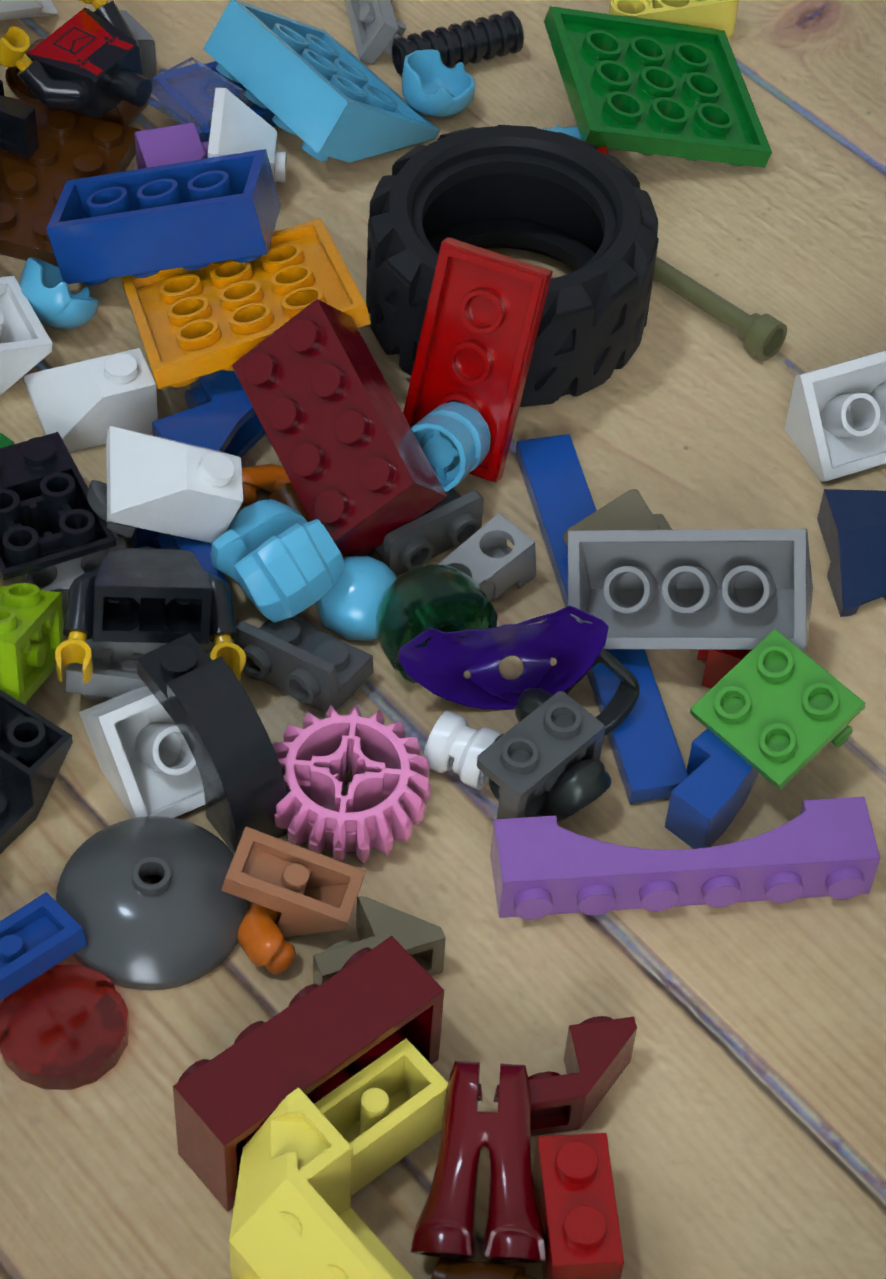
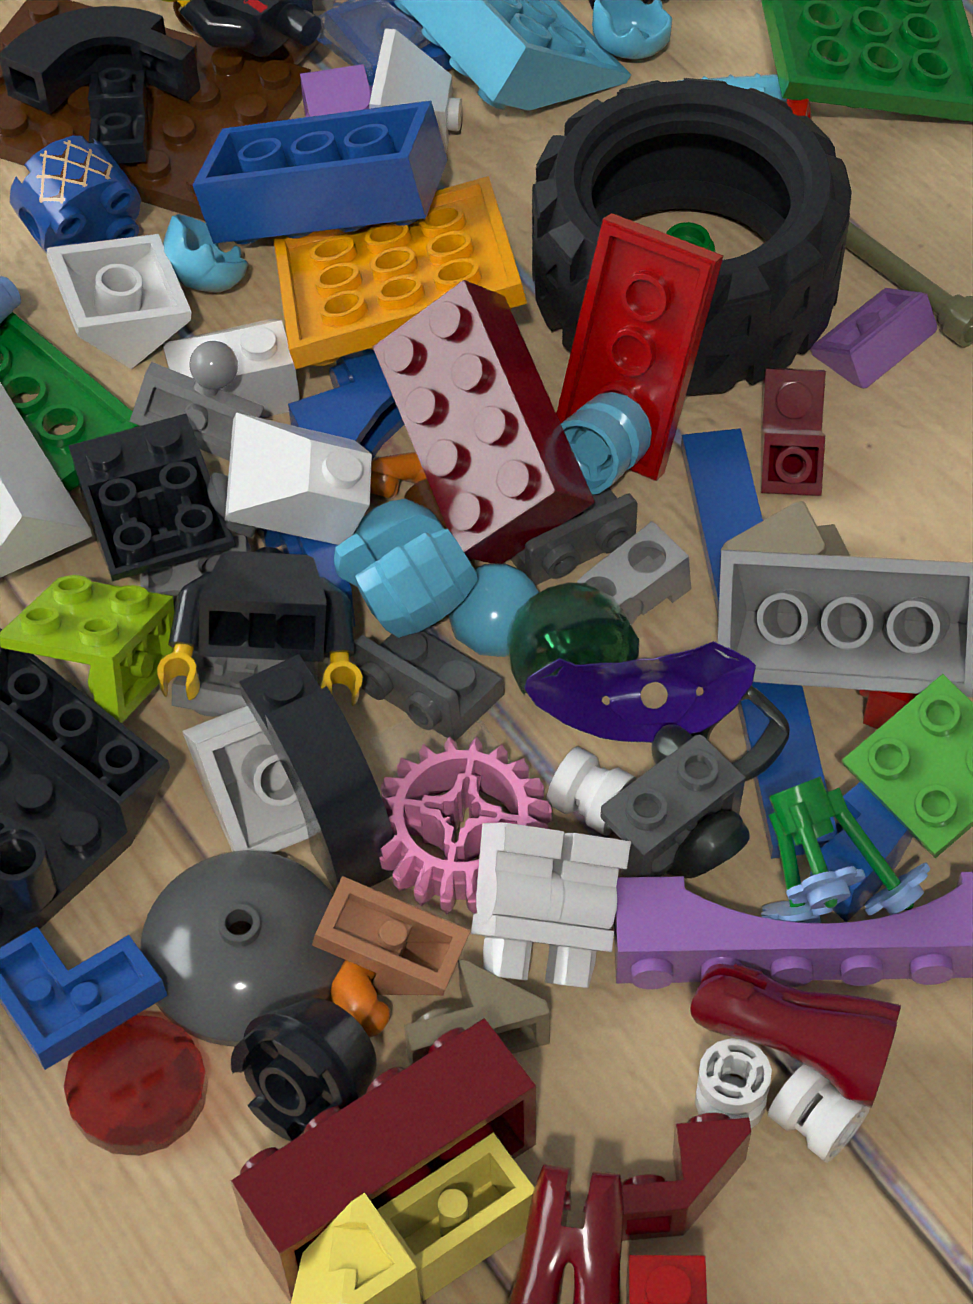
camera: 10 degrees right, 5 degrees up
(79, 428) = (208, 408): none -> light grey plate
(220, 991) = (303, 1063): none -> black cone
(436, 835) = (549, 892): none -> white hips
(615, 987) = (730, 1095): none -> white wheel
(616, 435) = (792, 431): none -> dark red slope
(663, 753) = (805, 815): none -> plant
(685, 352) = (877, 336): none -> medium lavender slope
(693, 1012) = (817, 1112): none -> white wheel
(705, 943) = (829, 1032): none -> dark red piece

